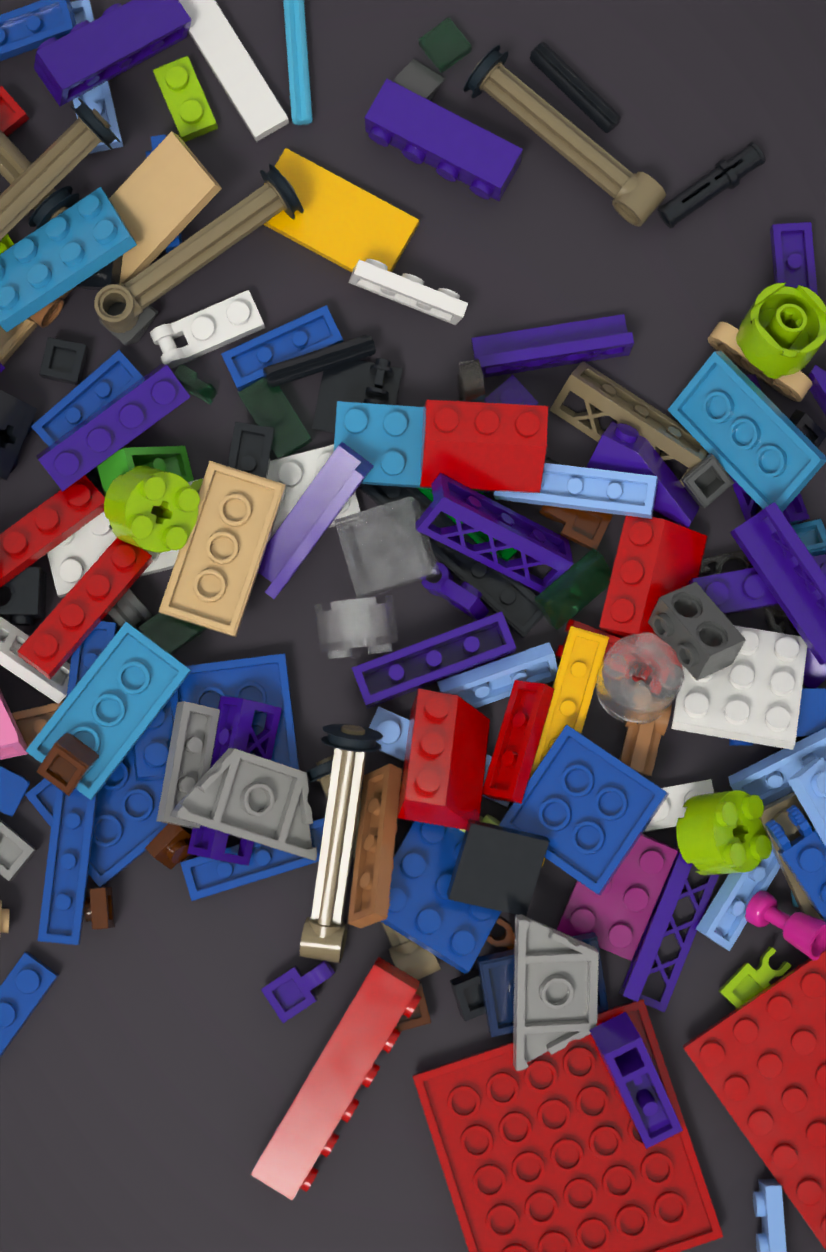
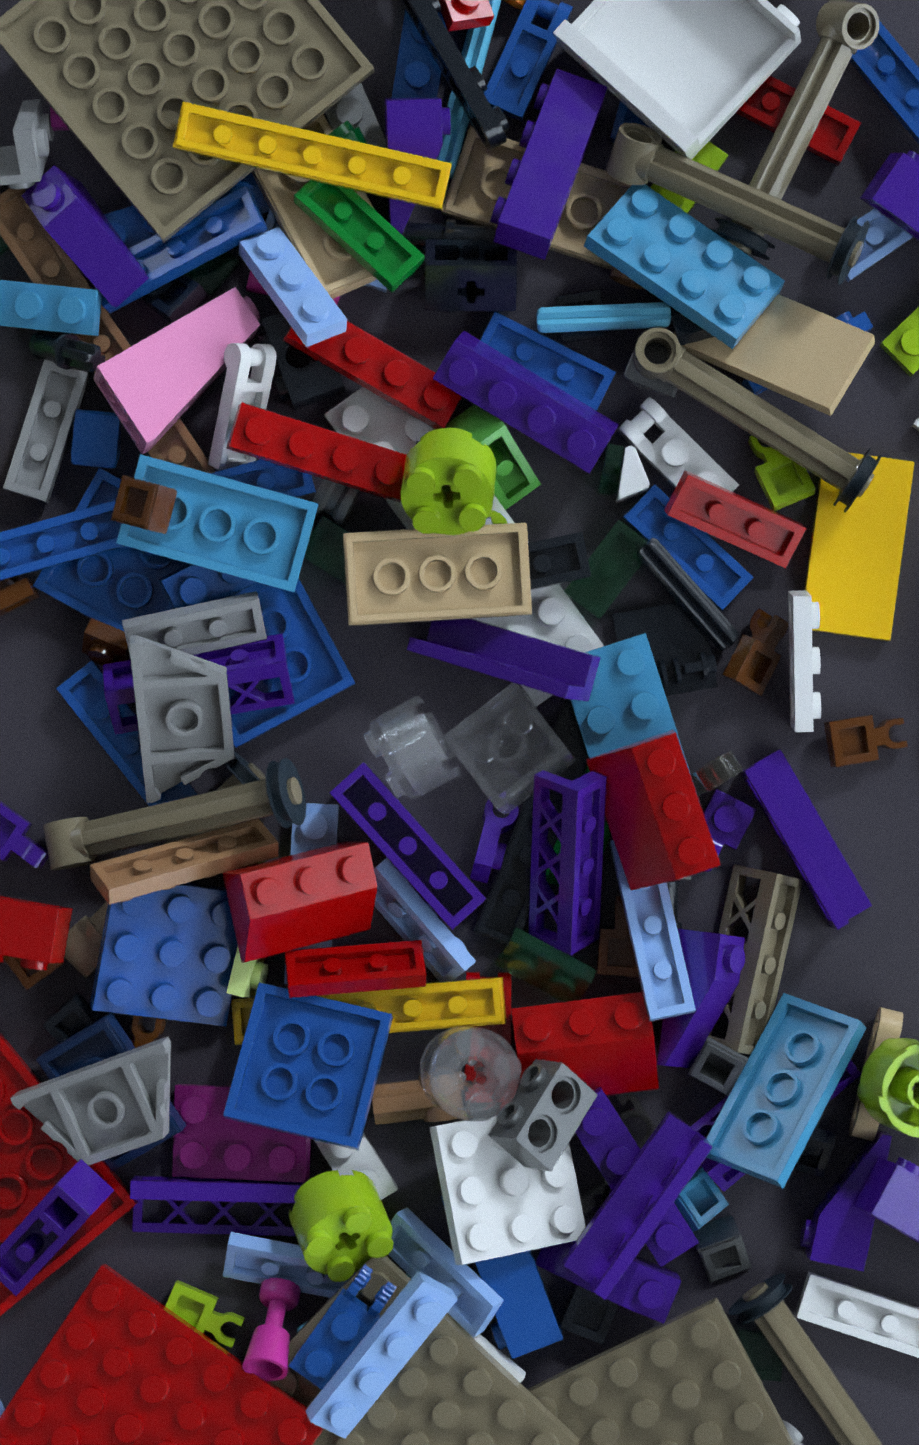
camera: 70 degrees right, 5 degrees up
(70, 342) = (603, 317): none -> medium azure axle
(208, 369) = (632, 477): none -> white slope
(255, 254) = (780, 477): none -> lime plate
(274, 301) = (735, 519): none -> red plate
(389, 327) = (755, 655): none -> reddish brown plate
(488, 274) = (857, 739): none -> reddish brown plate
(497, 867) = (210, 998): black tile -> none

